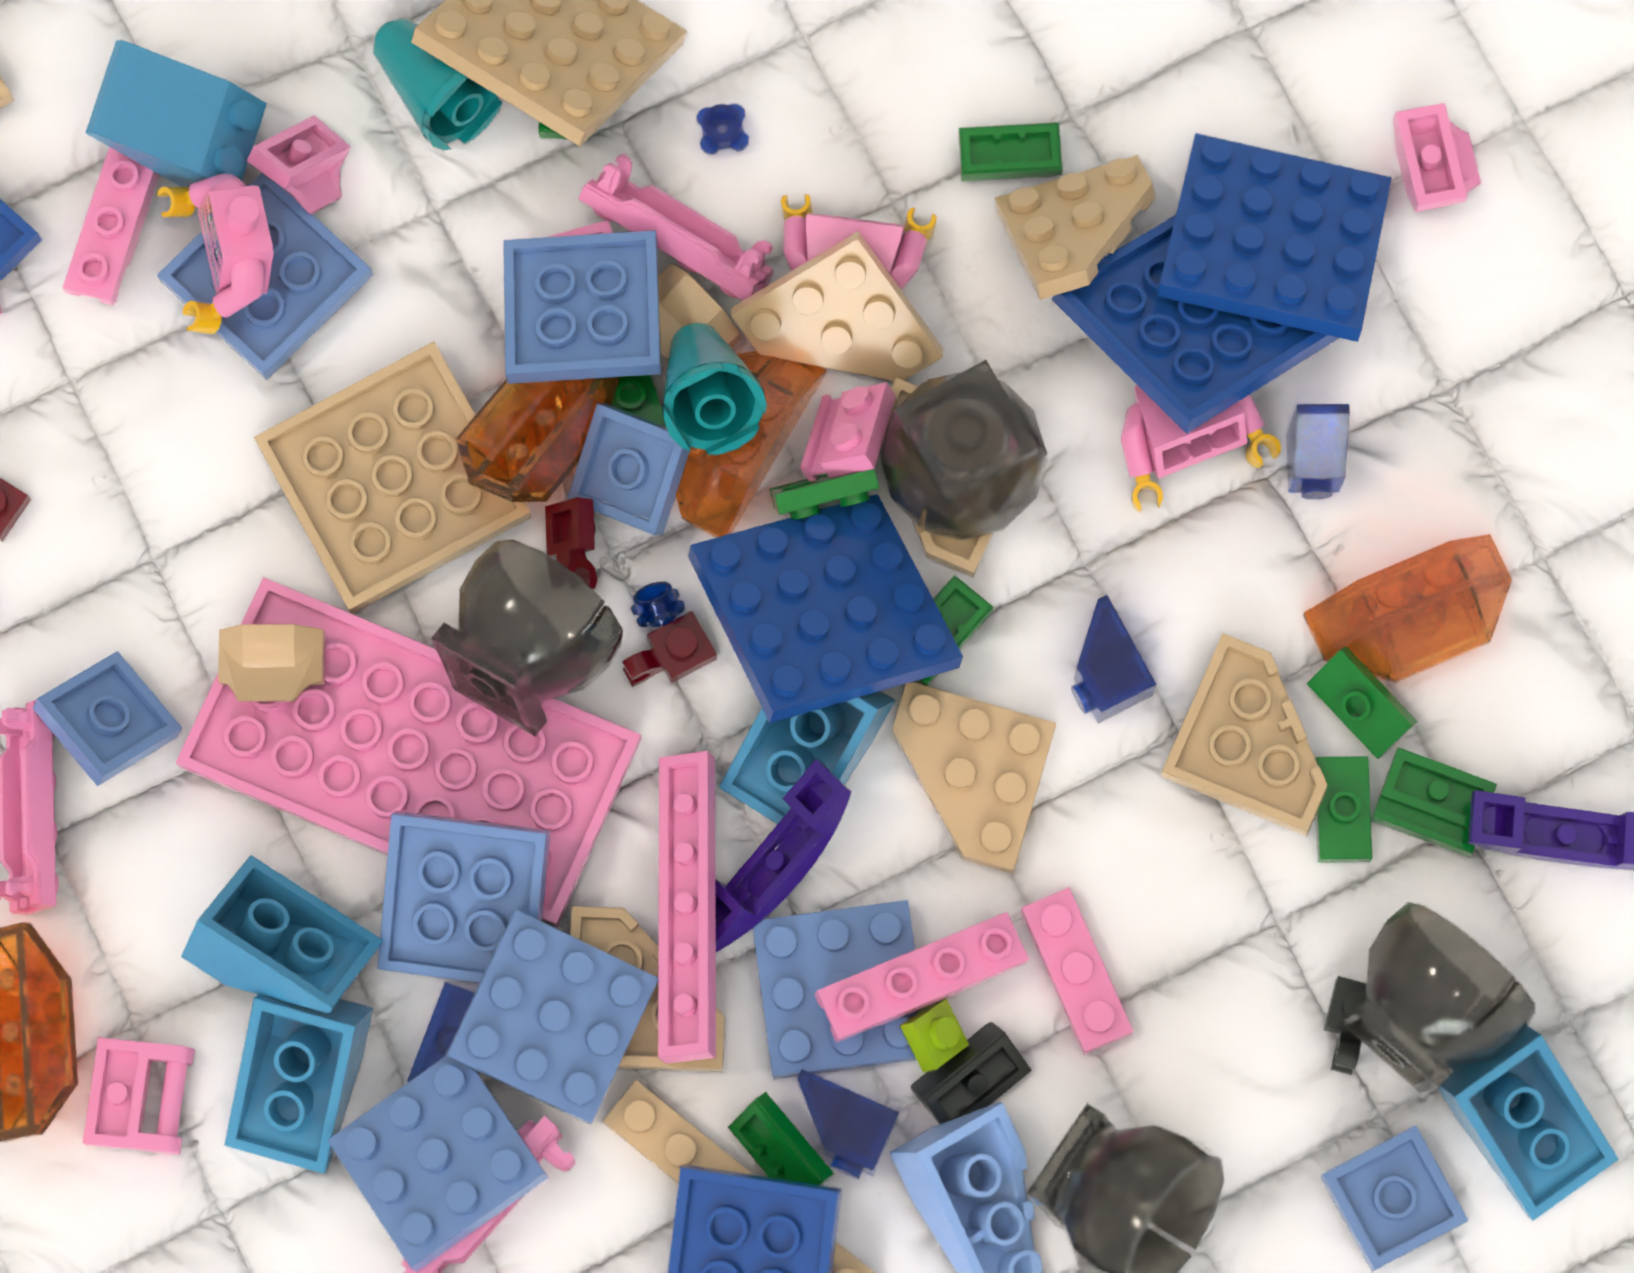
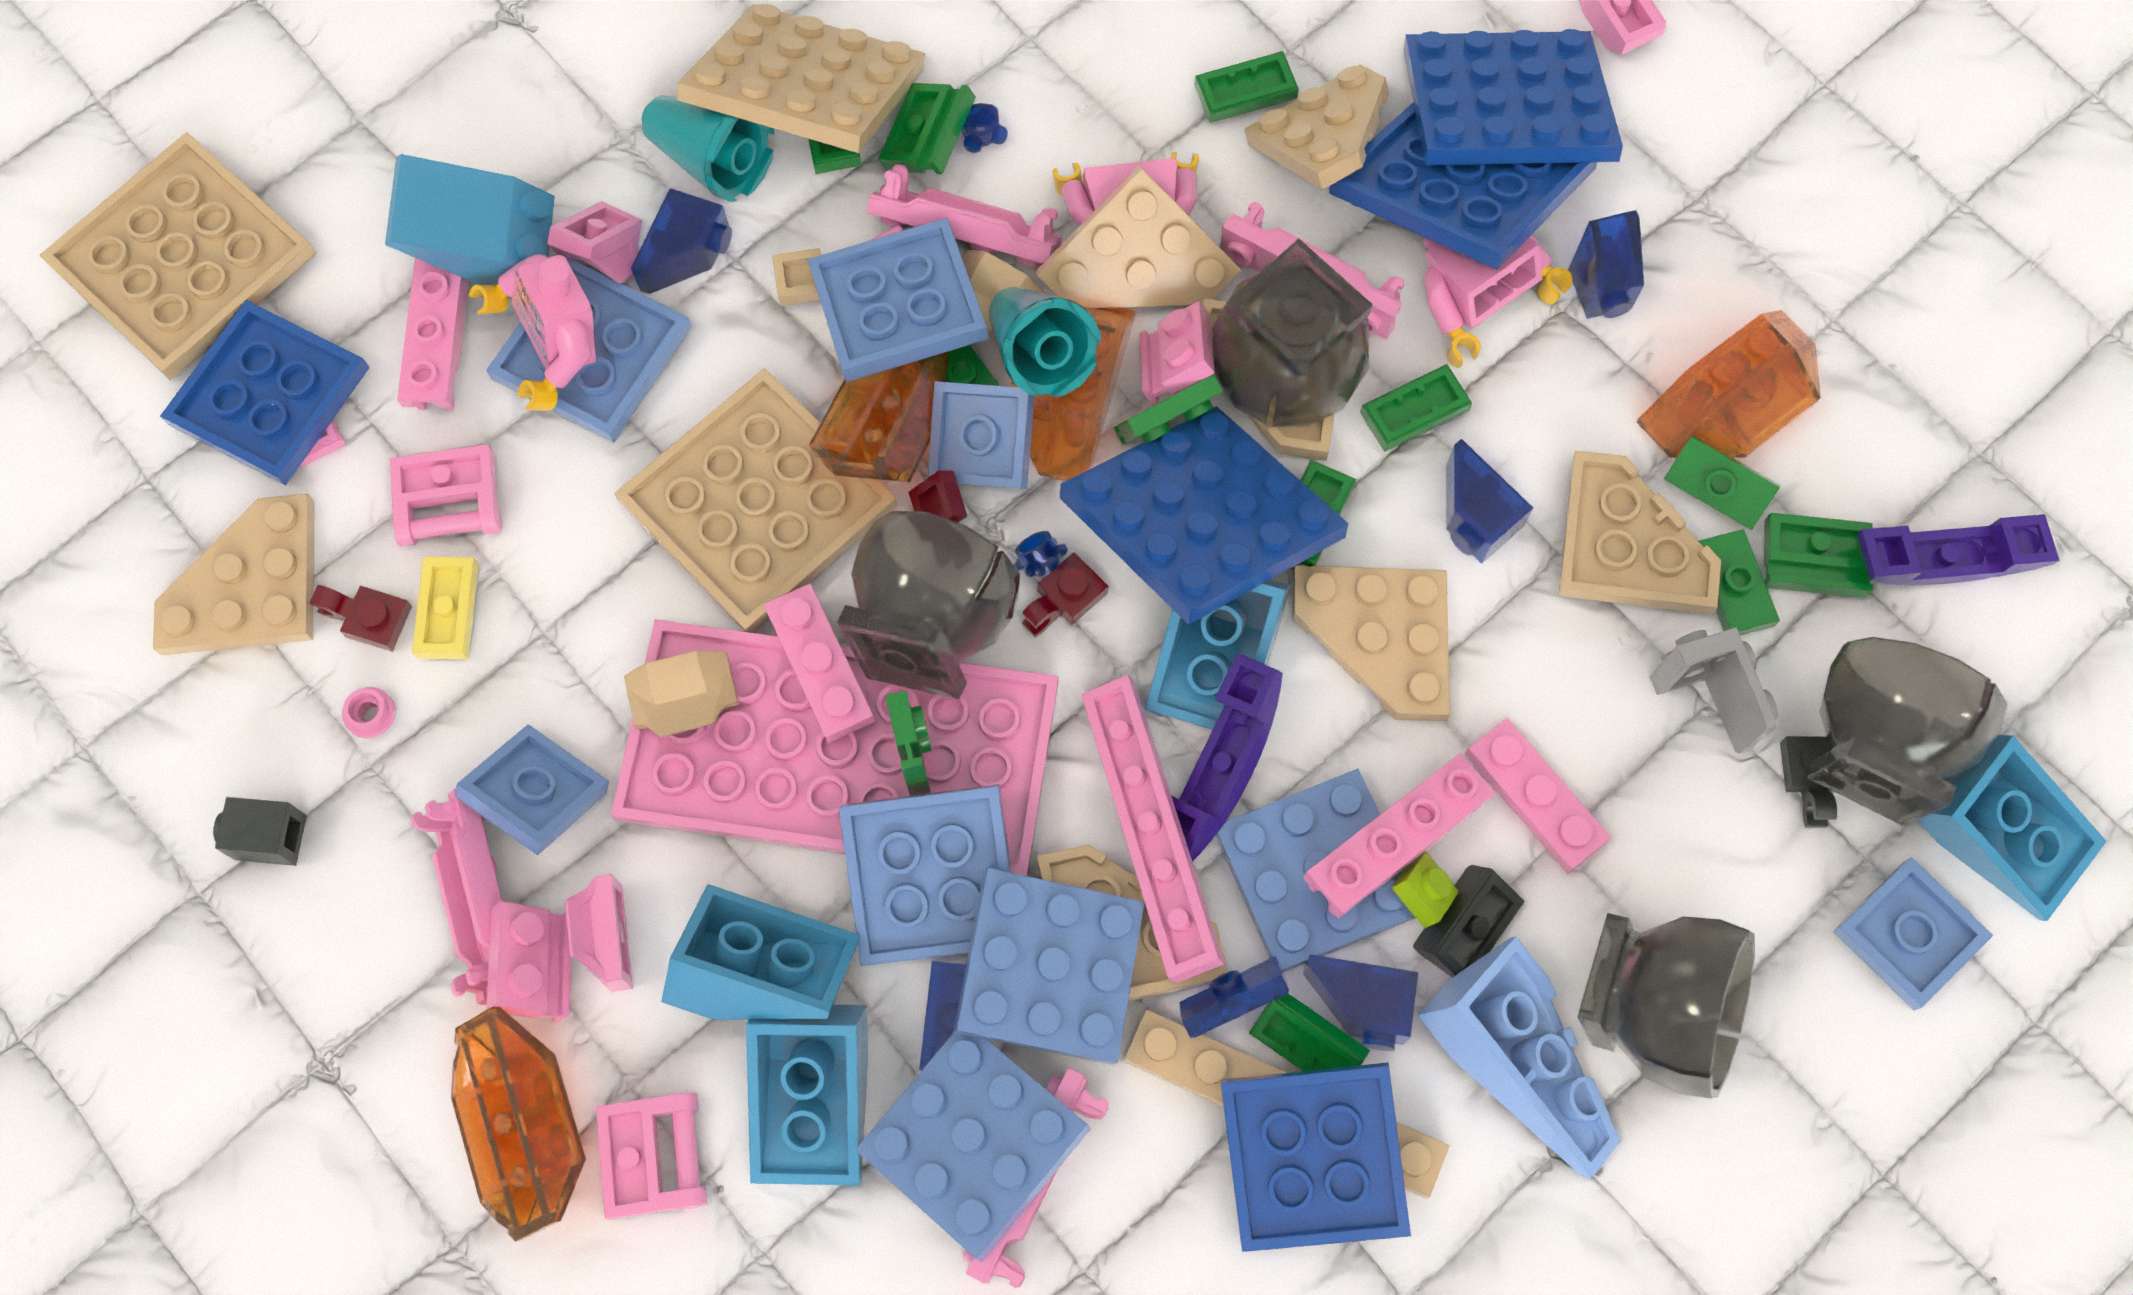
camera: 15 degrees left, 5 degrees down
(63, 512) = (445, 608): none -> light yellow plate
(67, 885) = (529, 962): none -> bright pink plate
(88, 378) = (442, 480): none -> bright pink plate
(139, 874) = (600, 932): none -> bright pink slope
(384, 182) = (681, 241): none -> clear blue slope
(411, 663) = (819, 663): none -> bright pink plate
(475, 766) = (911, 740): none -> green plate
(487, 248) = (794, 277): none -> tan plate
(665, 119) = (927, 127): none -> green plate
(719, 1089) = (1233, 996): none -> clear blue plate
(983, 341) = (1255, 247): none -> bright pink piece
(1078, 546) = (1415, 407): none -> green plate
(1266, 879) = (1731, 677): none -> light grey bracket

